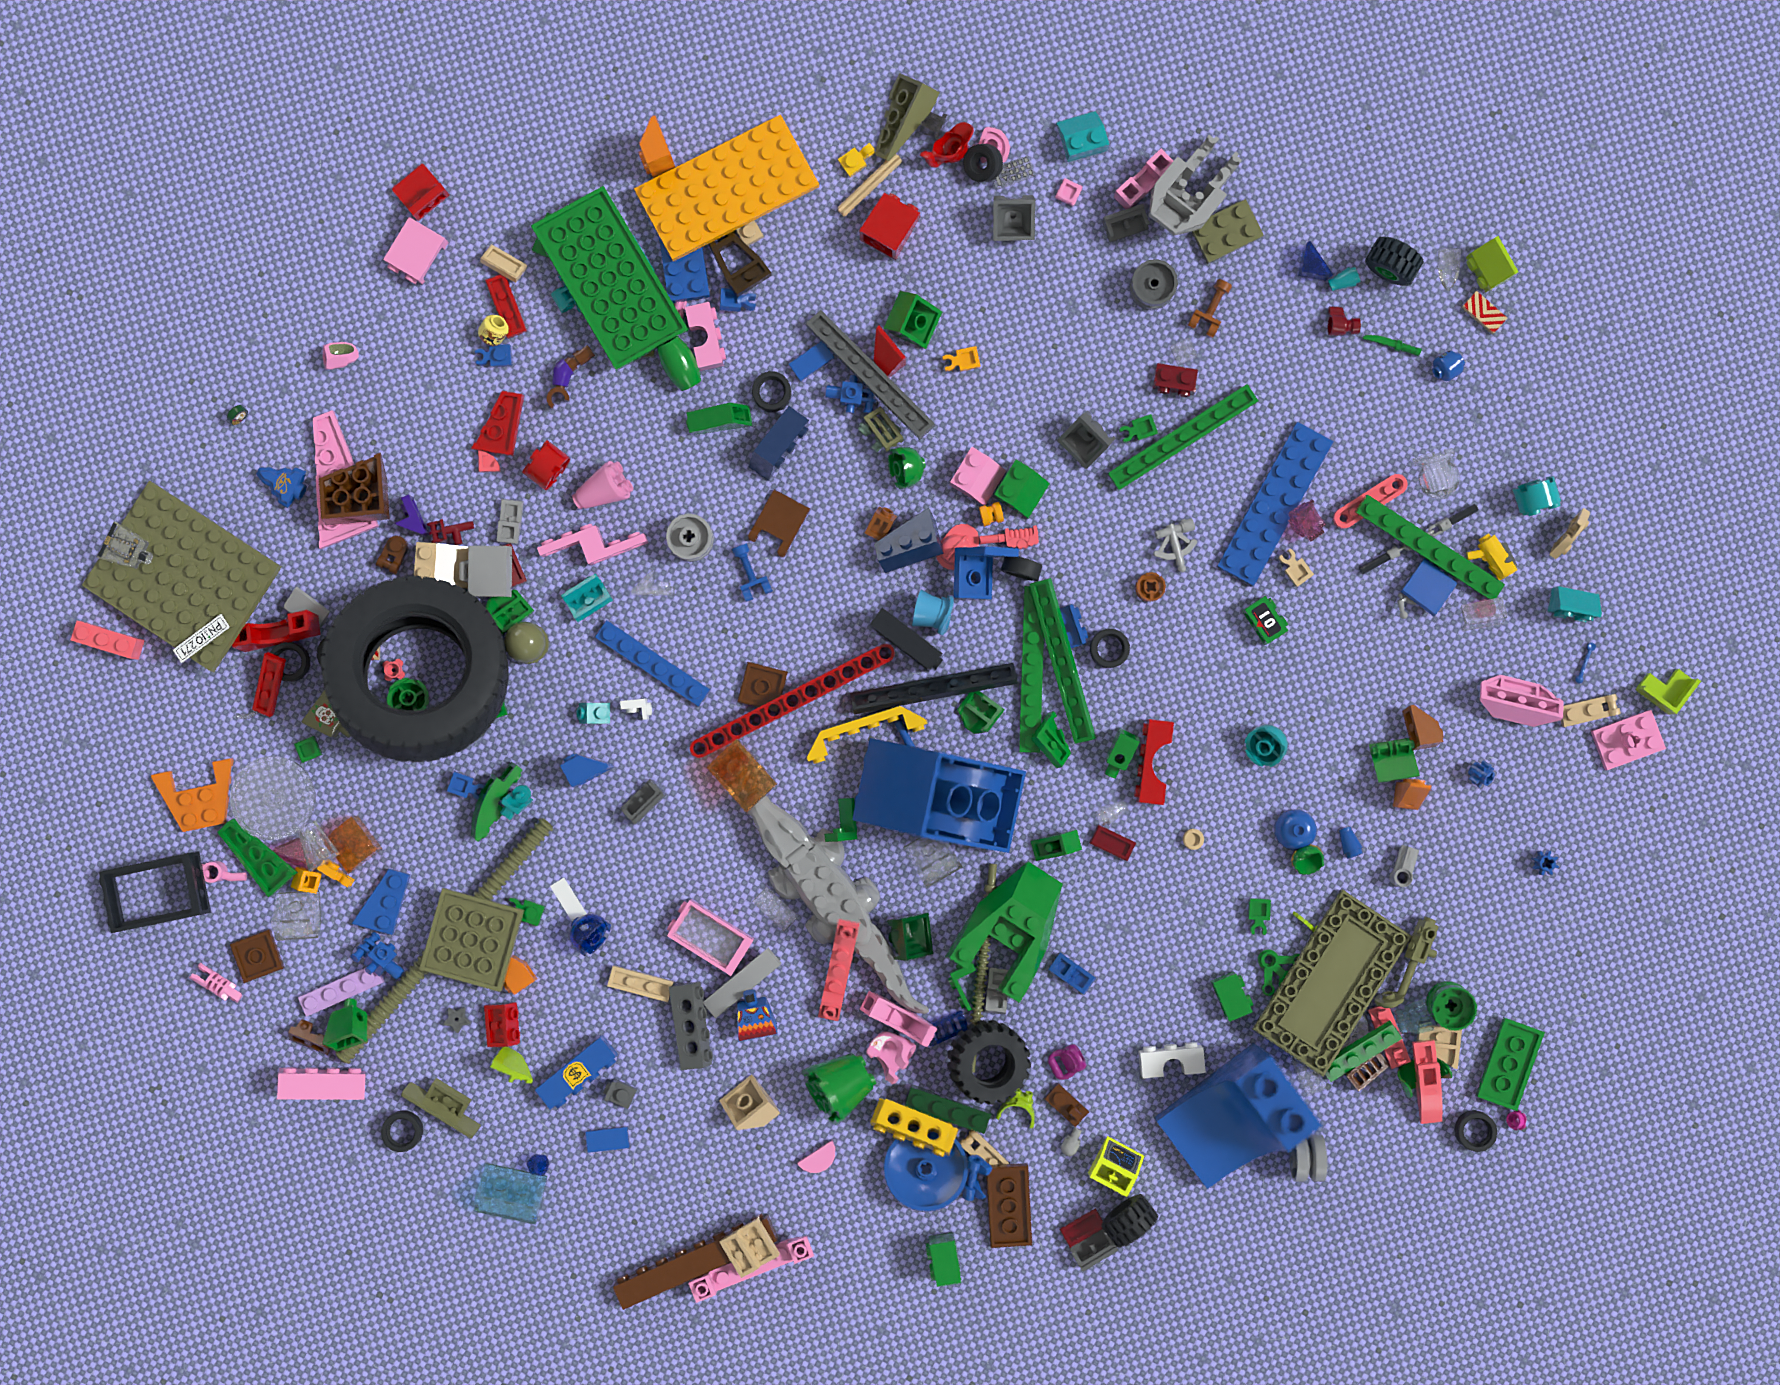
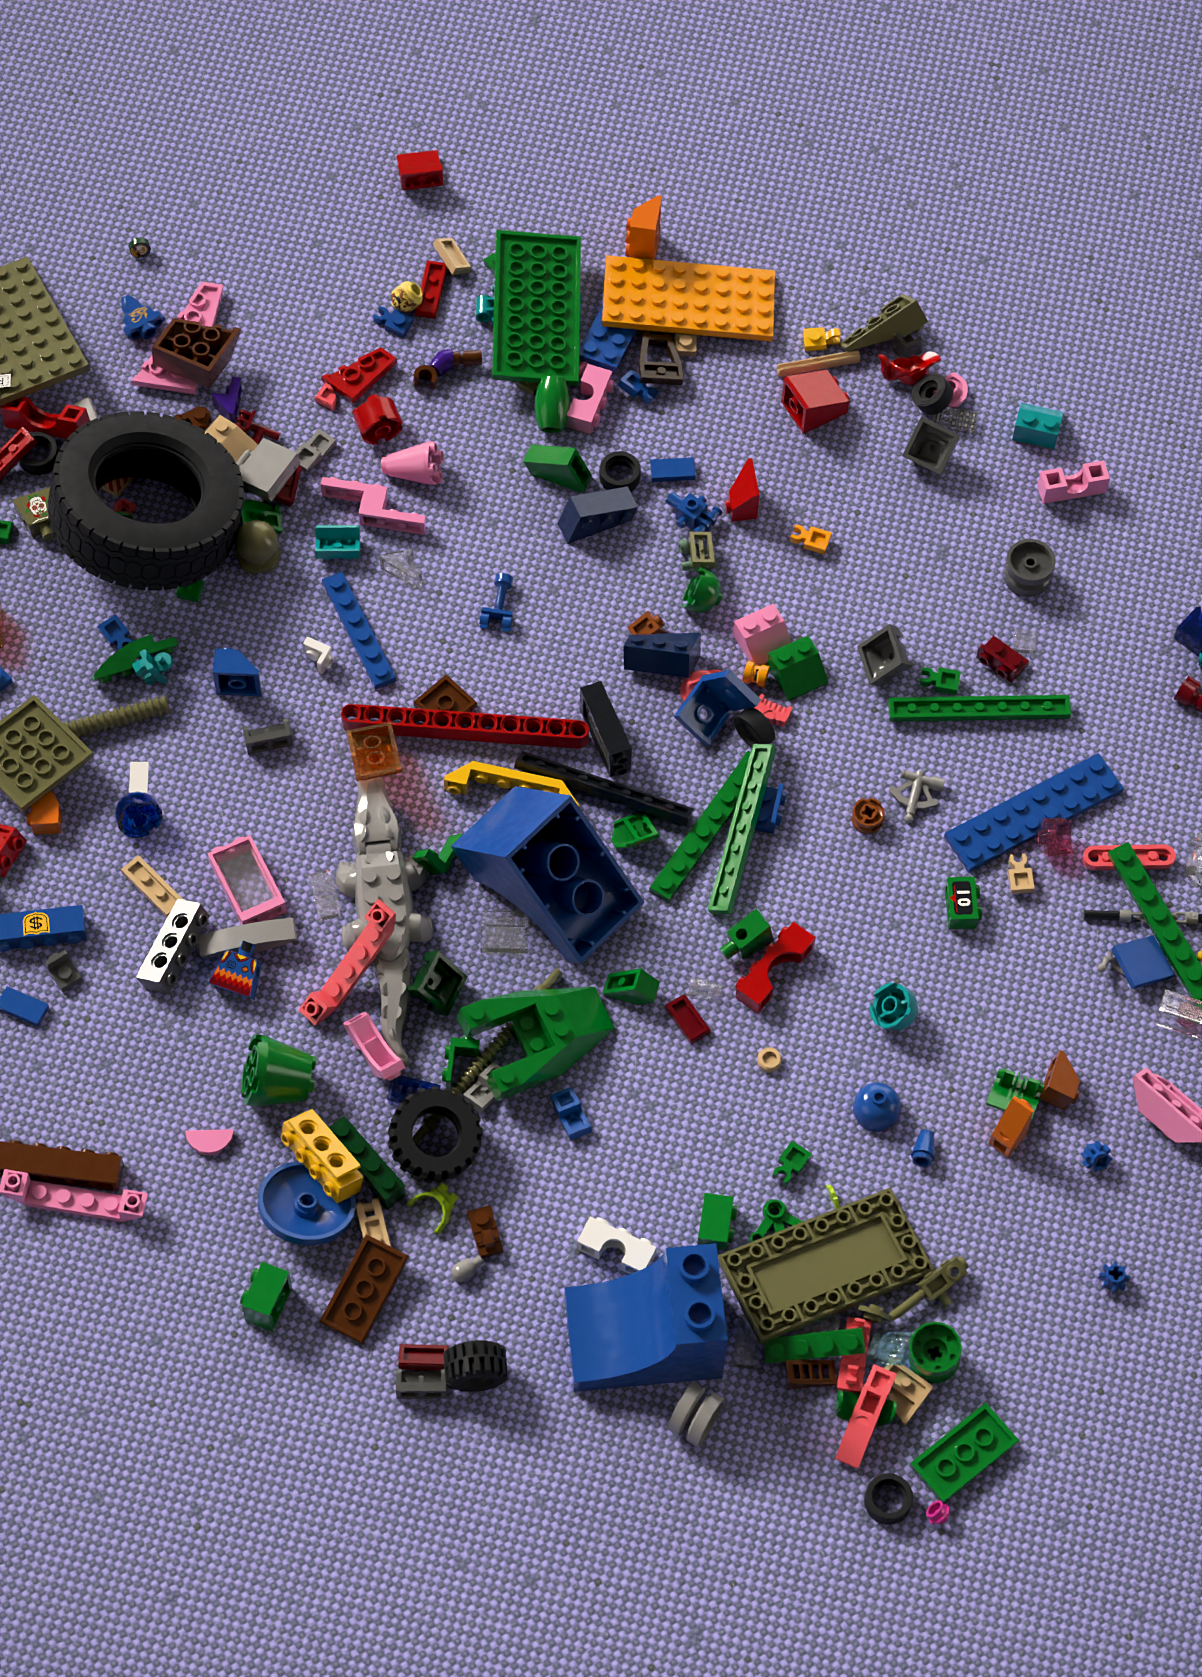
camera: 30 degrees right, 25 degrees down
(339, 355) = (260, 249): bright pink rock -> none
(414, 251) = (382, 206): bright pink panel -> none
(532, 911) = (97, 772): green plate -> none
(593, 713) = (276, 639): bracket -> none
(688, 525) = (464, 544): light grey wheel -> none
(749, 1105) = (178, 1050): tan slope -> none
(749, 1247) = (85, 1170): tan slope -> none
(781, 519) = (557, 578): reddish brown flag -> none
(870, 374) = (718, 500): dark grey plate -> none
(892, 1052) = (348, 1078): bright pink piece -> none
(913, 319) = (787, 483): green slope -> none
(933, 612) = (645, 720): dark azure hat -> none
(972, 1187) = (339, 1250): blue piece -> none
(1052, 741) = (686, 893): green wing -> none
(1068, 192) = (997, 461): bright pink tile -> none
(1071, 1058) = (518, 1191): magenta piece -> none
(1094, 648) = (799, 830): black tyre -> none
(1116, 1166) = (495, 1312): neon yellow slope -> none
(1125, 223) = (1035, 509): dark grey hinge -> none
(1176, 208) = (1096, 497): light grey connector -> none
(1222, 287) = (1093, 607): dark orange bar -> none
(1228, 231) = (1126, 566): olive plate -> none
(1308, 859) = (871, 1137): green hair -> none
(1404, 863) = (966, 1199): light grey piece -> none

